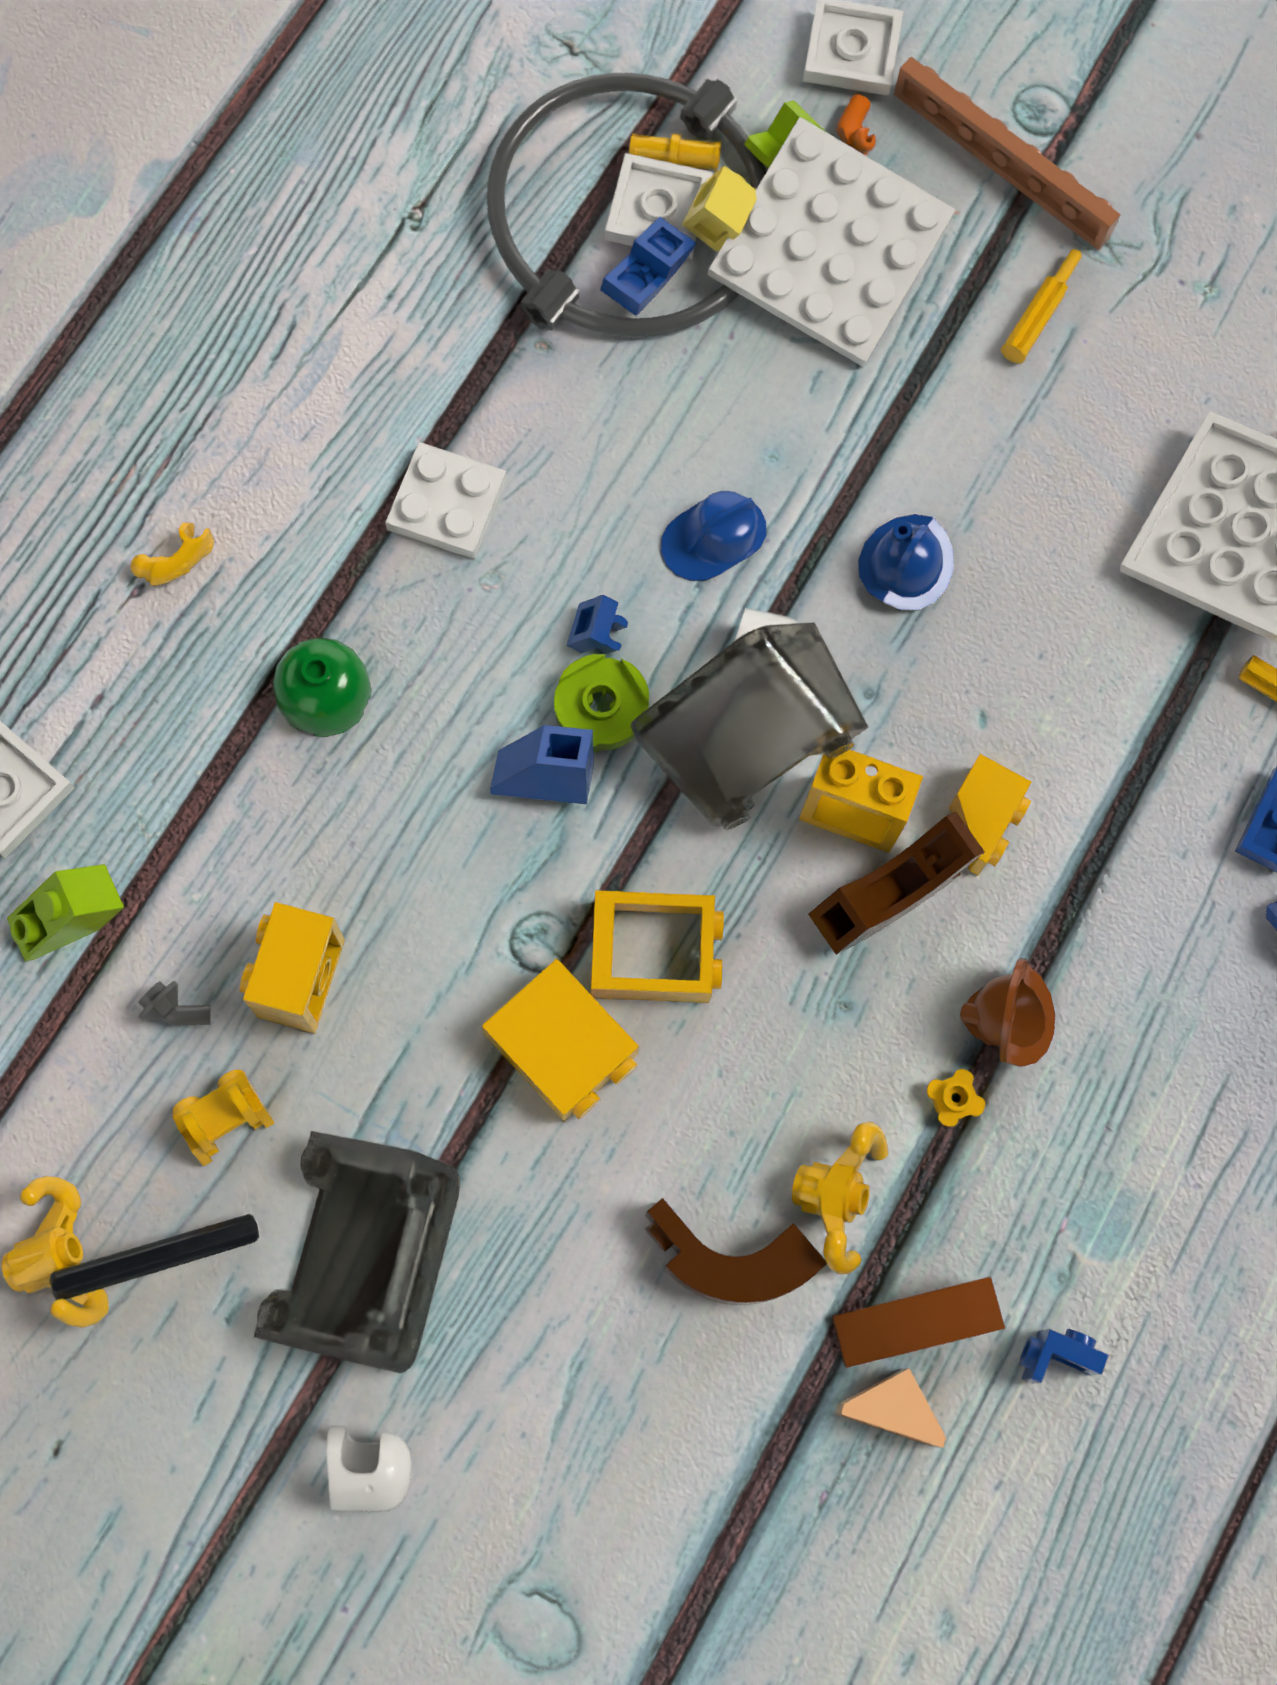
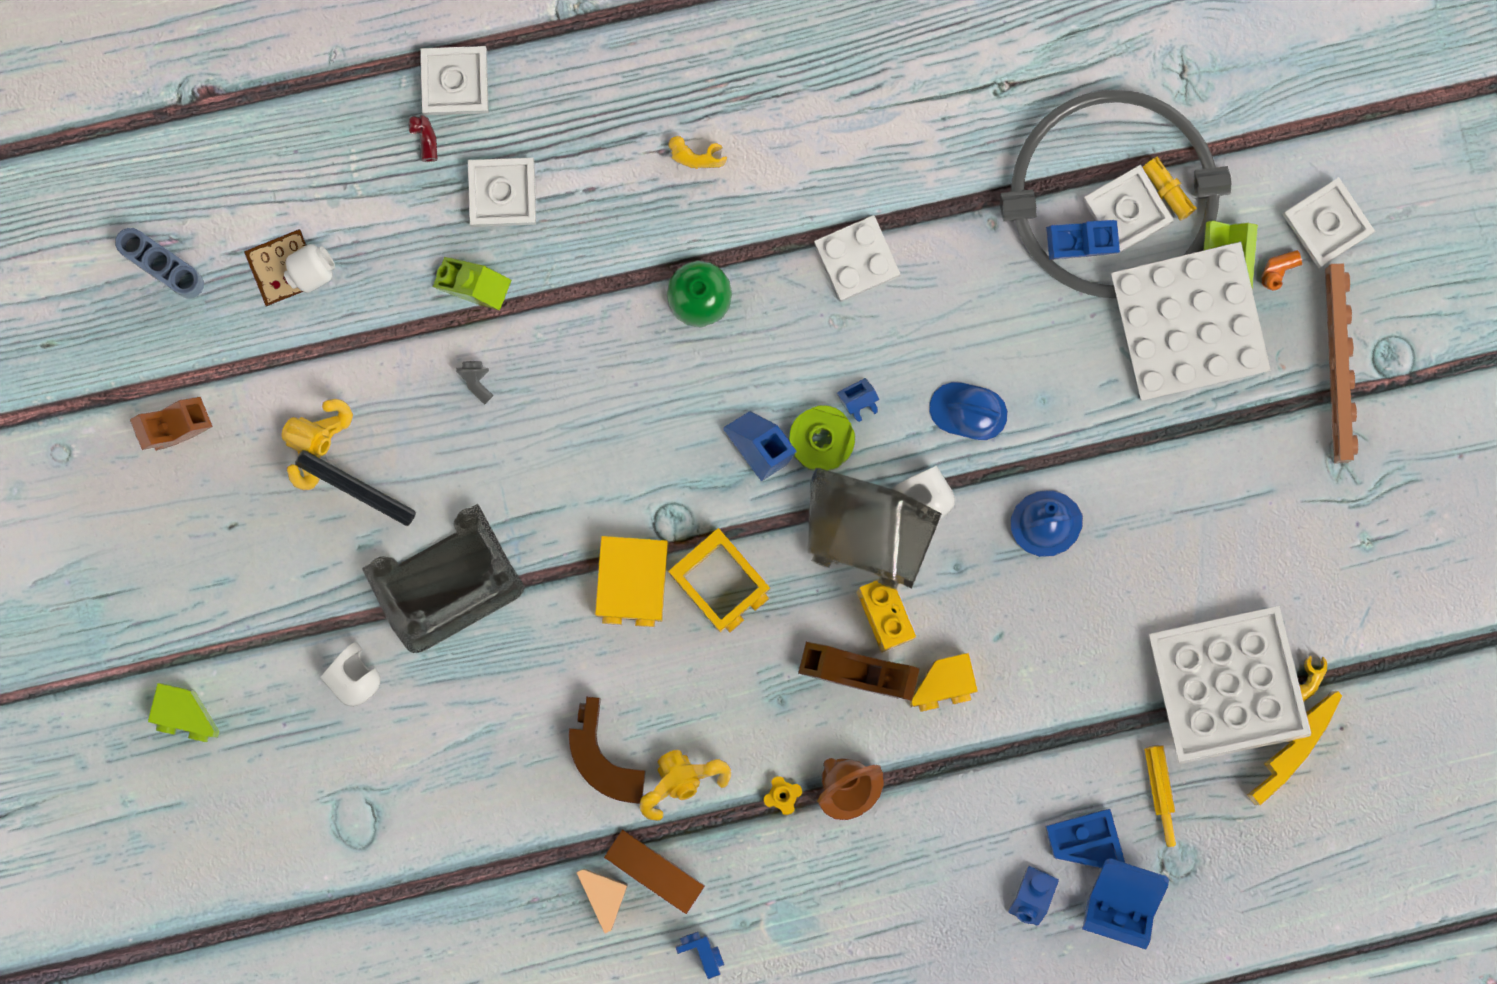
camera: 50 degrees right, 10 degrees up
(218, 1113) = (447, 451): yellow piece -> none
(292, 967) = (544, 419): yellow brick -> none
(720, 208) = (1152, 247): light yellow brick -> none
(1039, 311) = (1263, 464): yellow axle -> none

